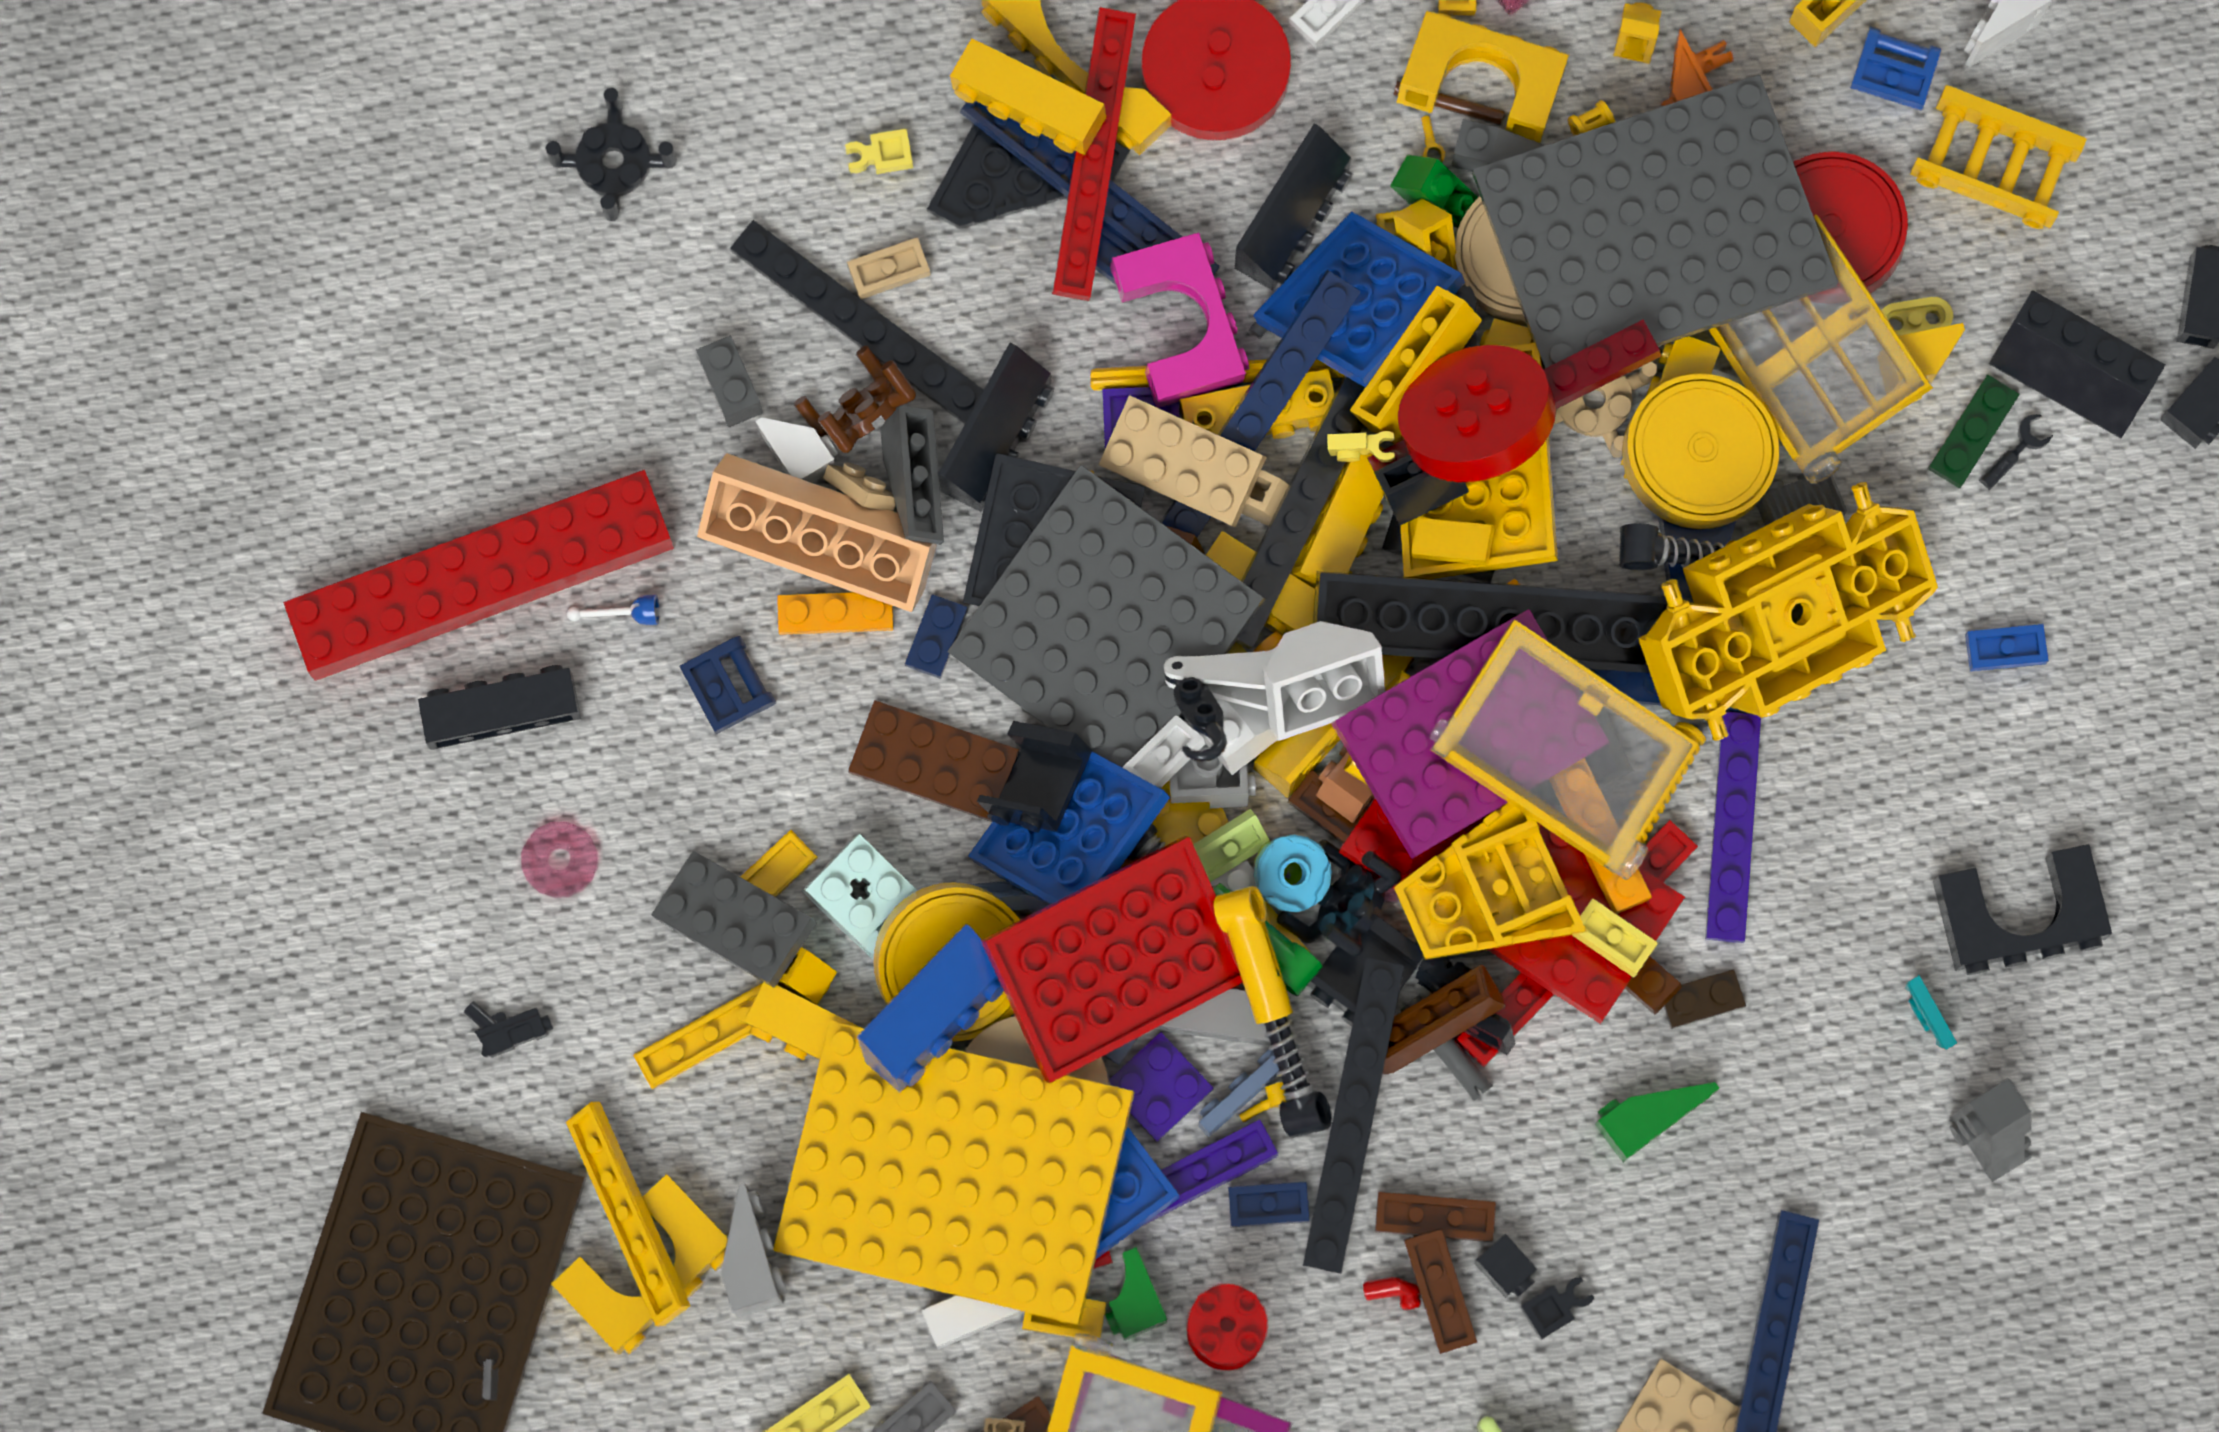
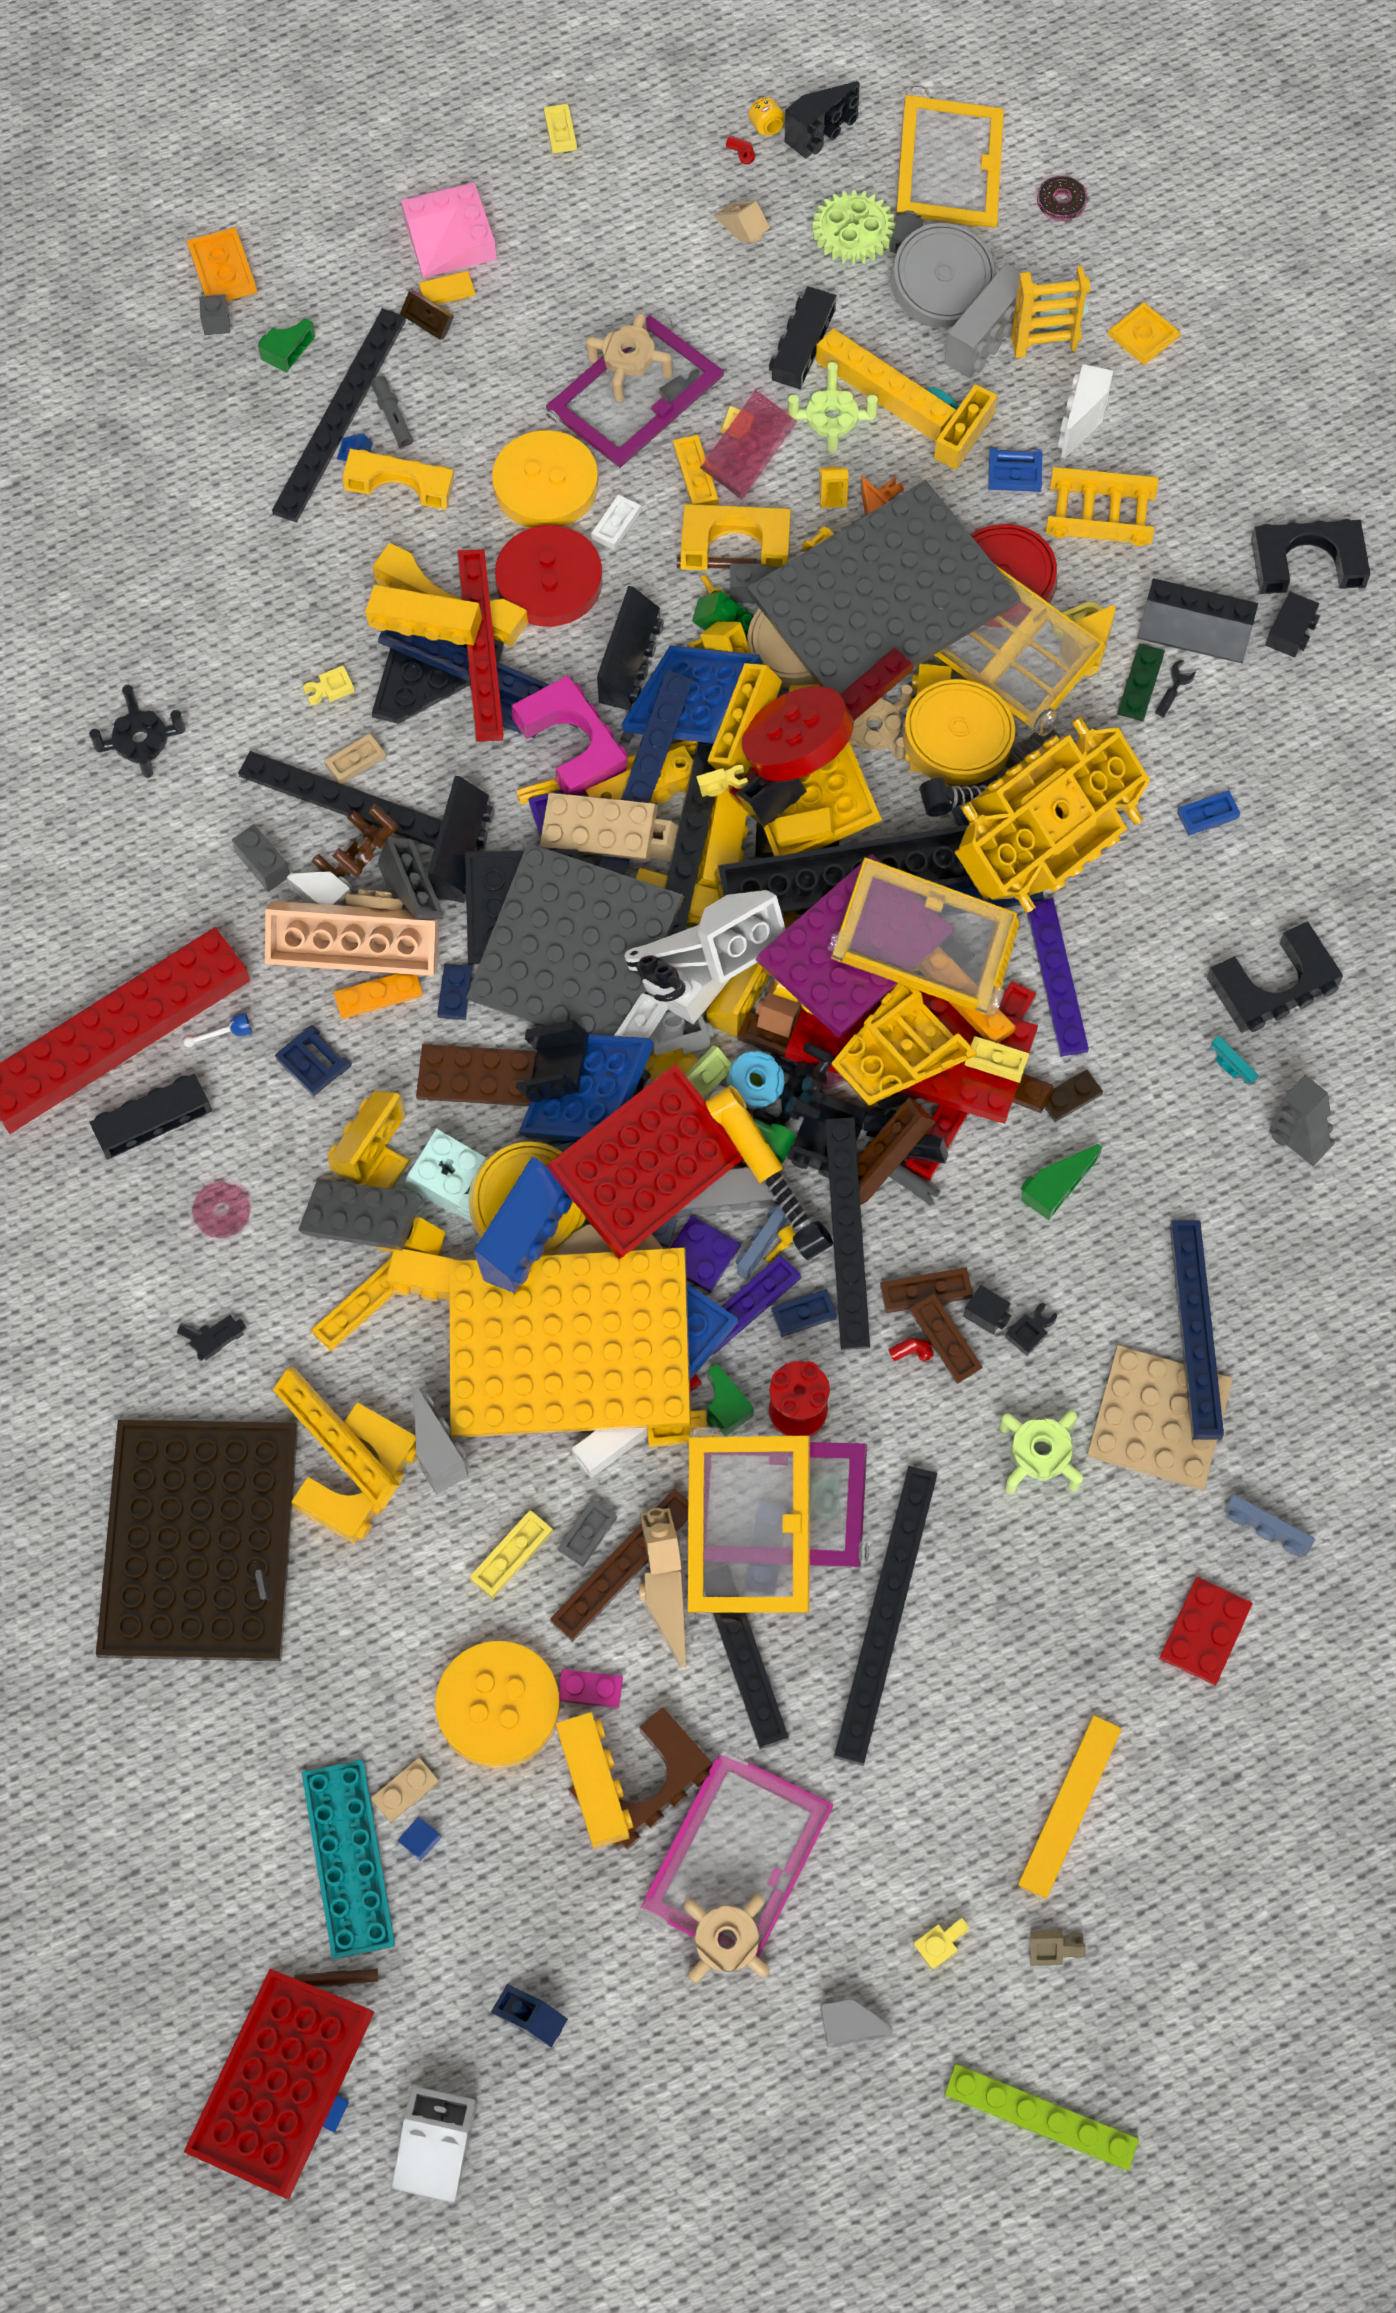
camera: 15 degrees left, 10 degrees down
(768, 811) = (366, 1135): none -> yellow slope

